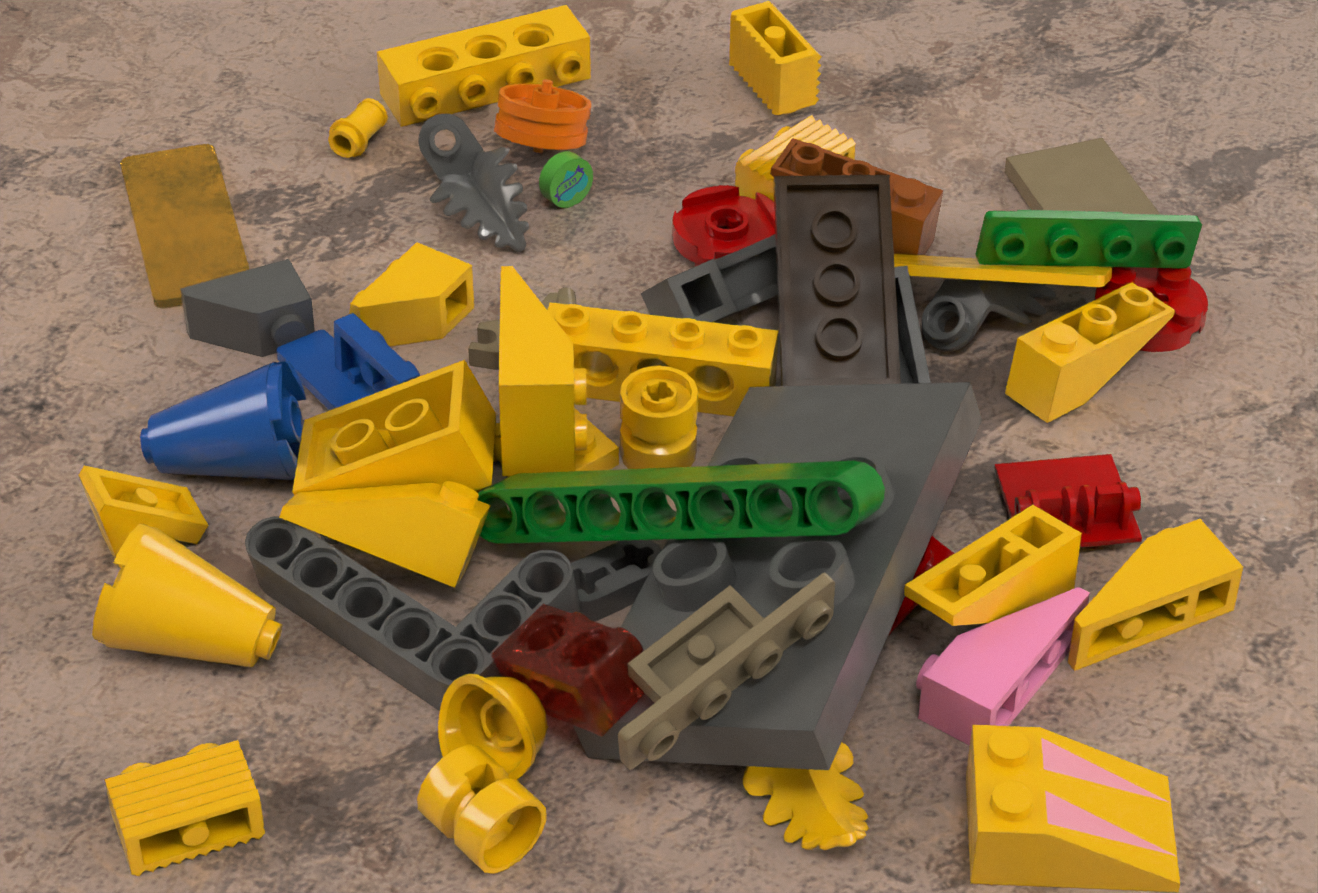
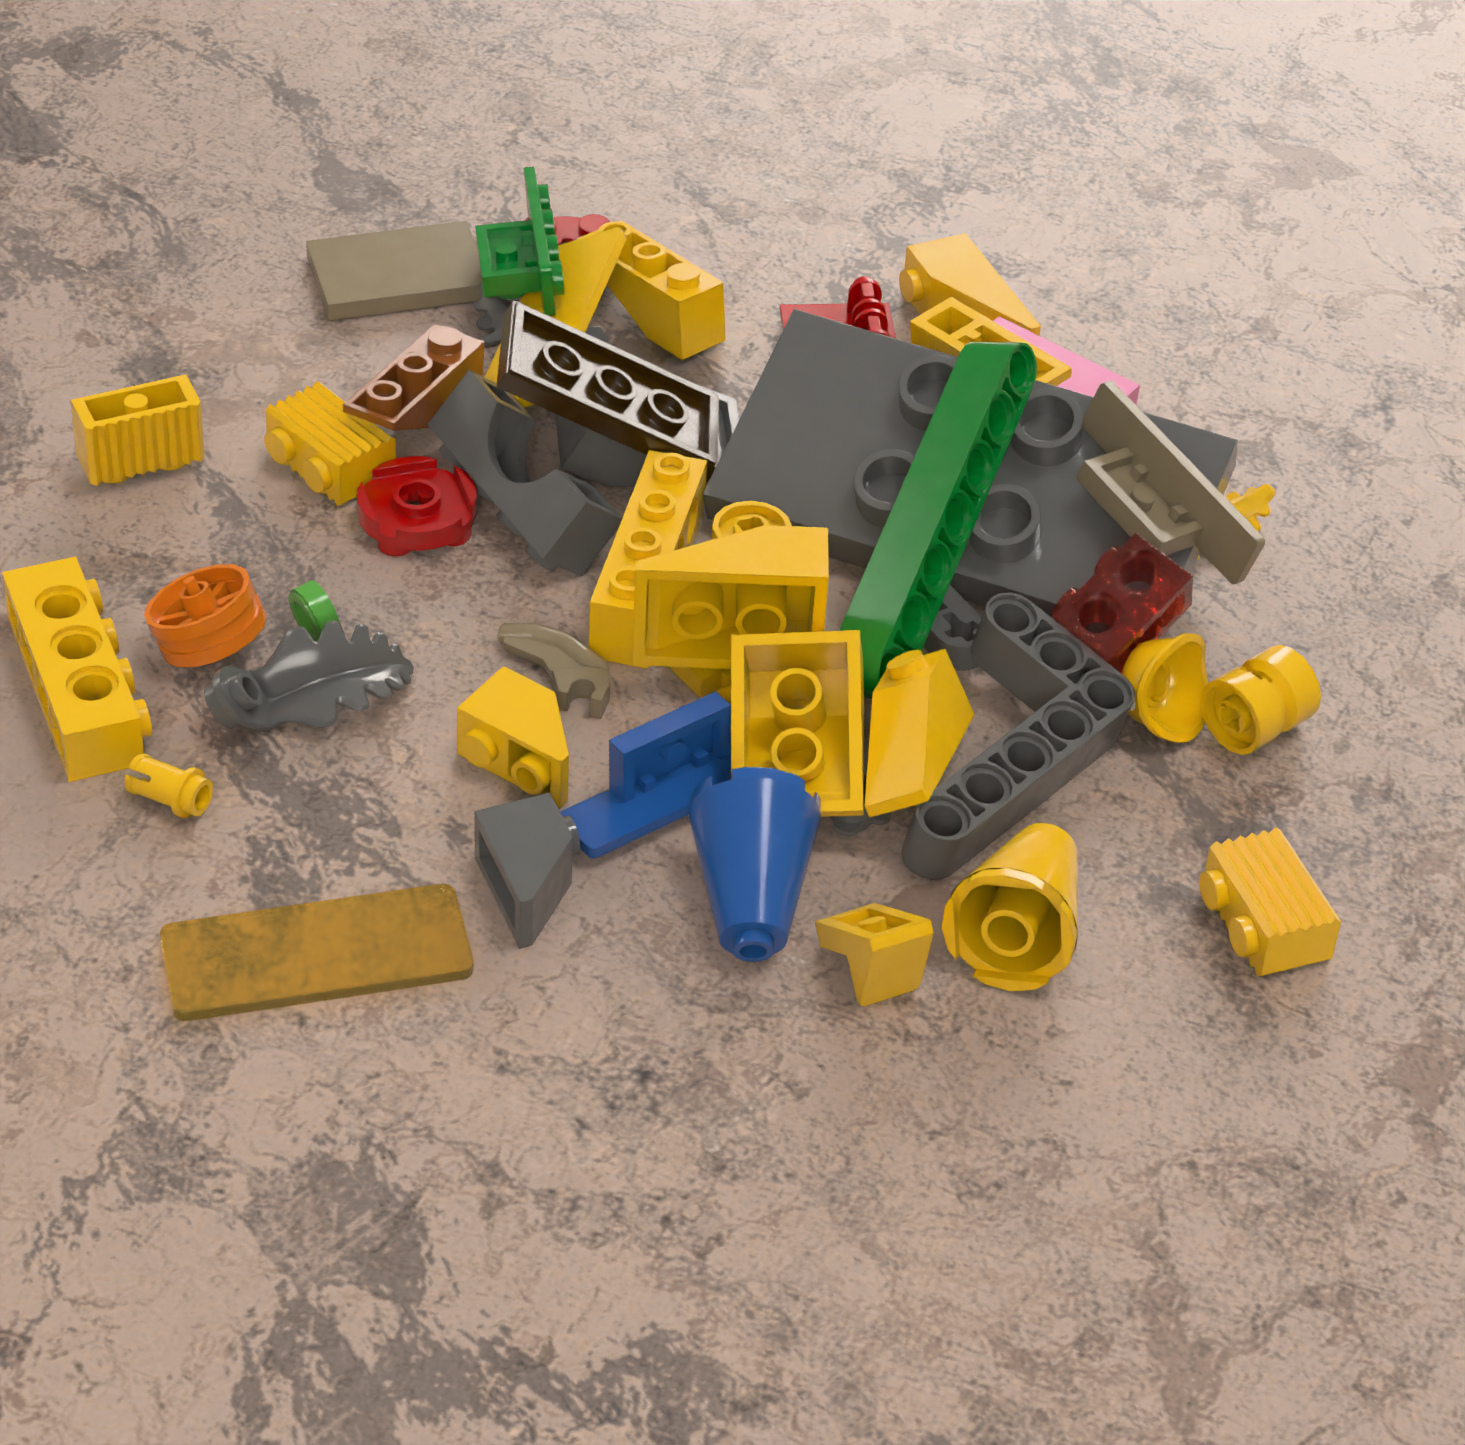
camera: 90 degrees left, 0 degrees up
(1065, 815) = (1222, 388): yellow slope -> none

